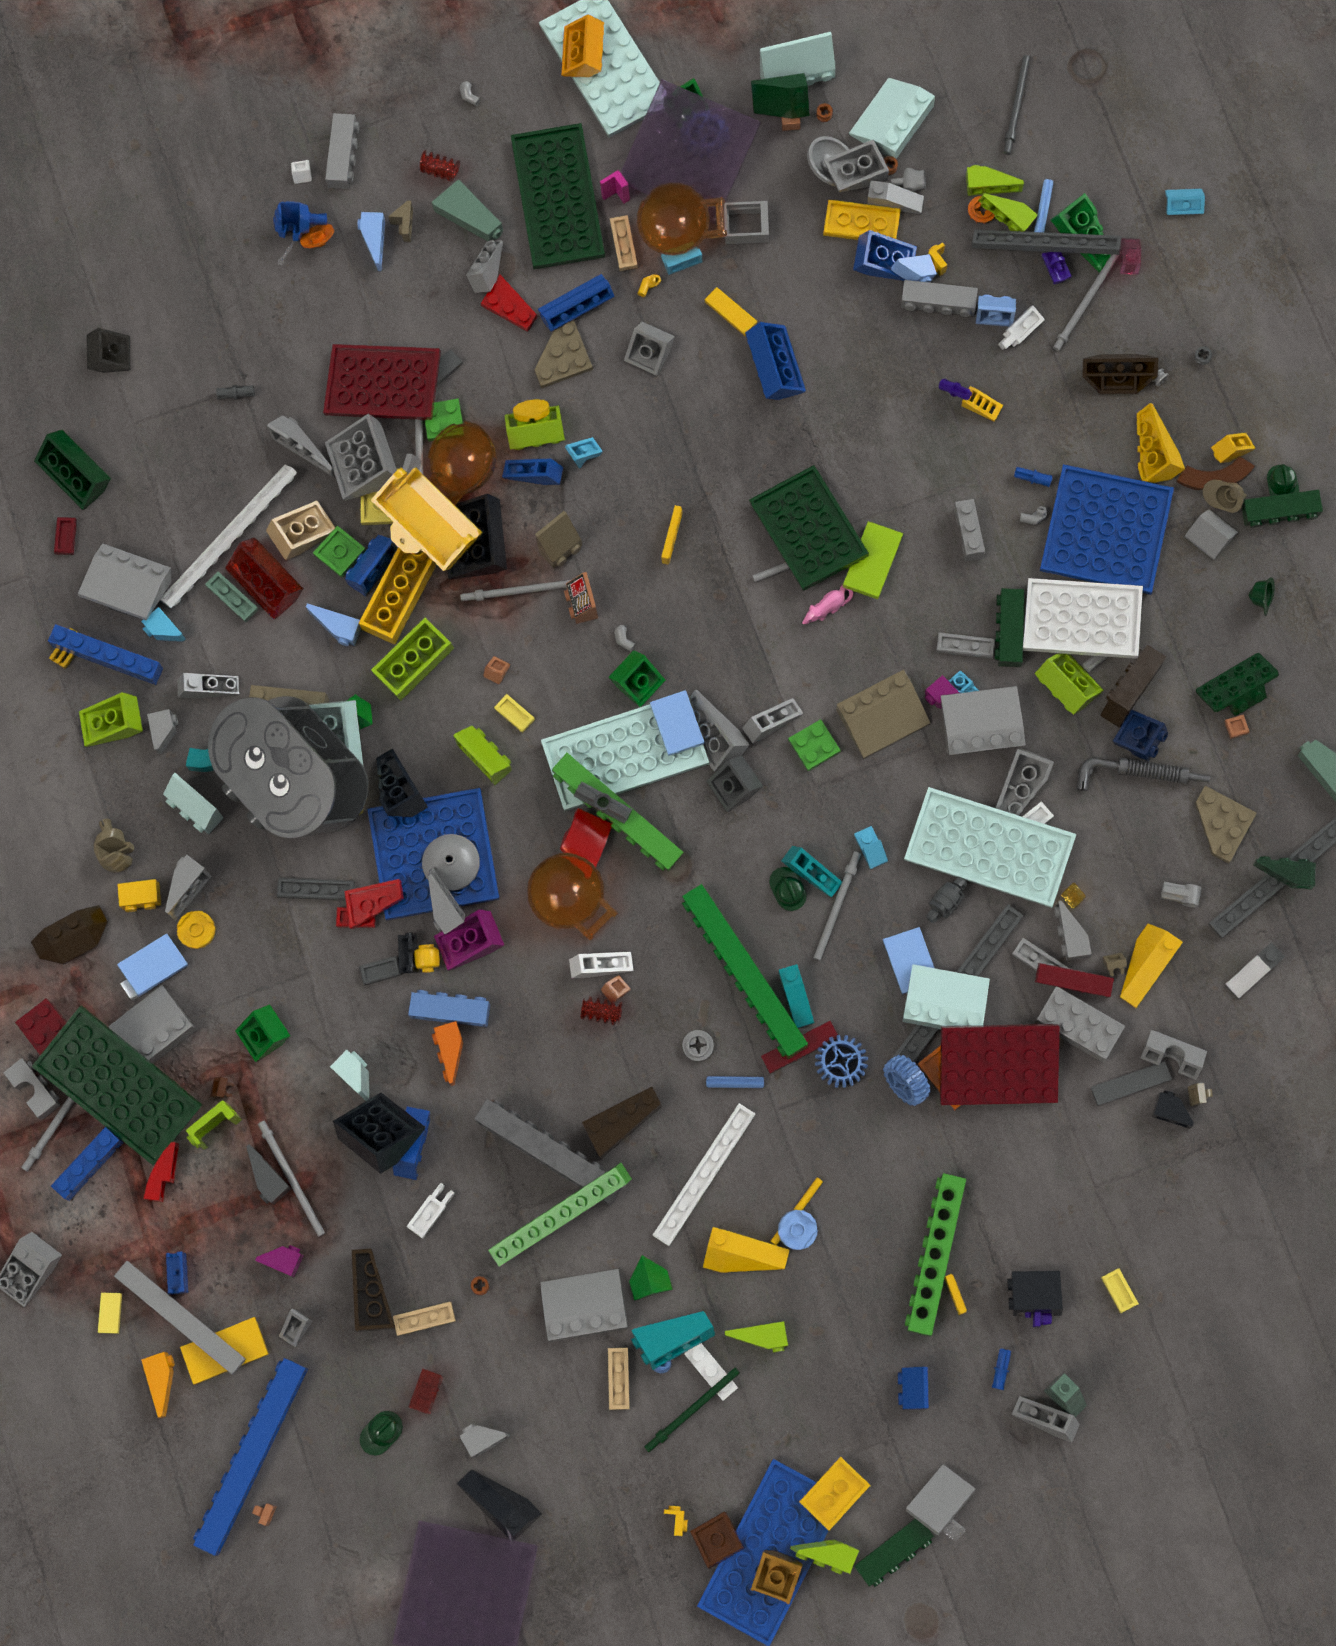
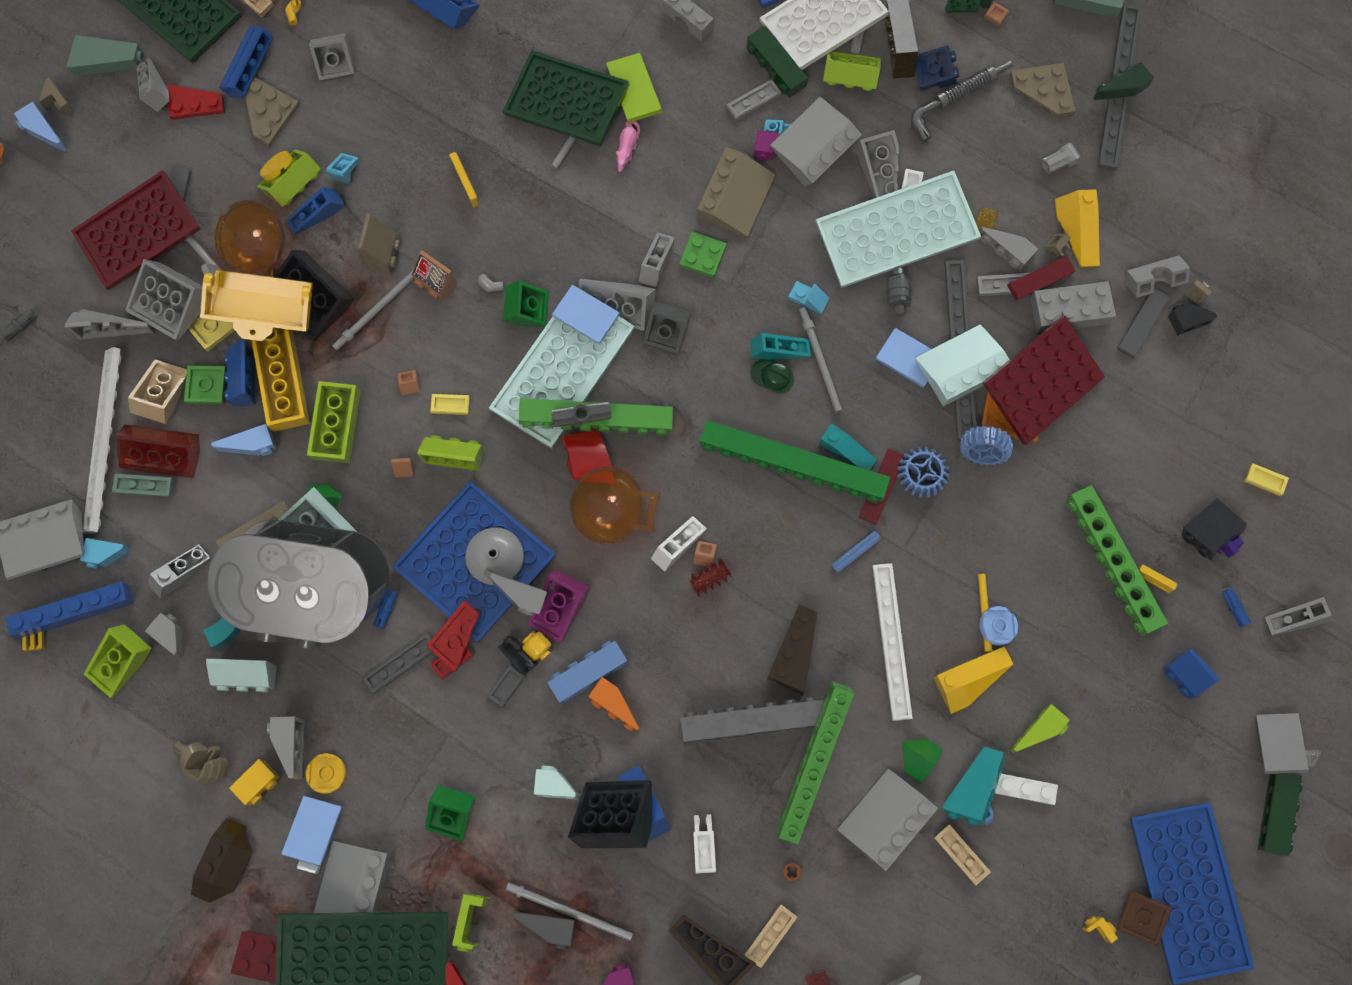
camera: 45 degrees left, 0 degrees up
(219, 1087) = (450, 886): reddish brown tile -> none
(337, 838) = (385, 609): none -> blue pin
(396, 788) = (404, 531): black wedge -> none
(437, 736) = (402, 467): none -> nougat slope
(439, 167) = (51, 38): clear red piece -> none
(444, 414) = (207, 219): bright green plate -> none
(662, 1435) = (1032, 871): dark green bar -> none
(690, 1040) = (804, 537): light grey gear -> none
(777, 1575) = (1216, 906): pearl gold slope -> none
(830, 1552) = (1237, 855): lime slope -> none
(834, 1493) = (1201, 805): yellow tile -> none
(1066, 1395) = (1302, 585): sand green slope -> none
(1255, 970) = (1160, 172): slope -> none

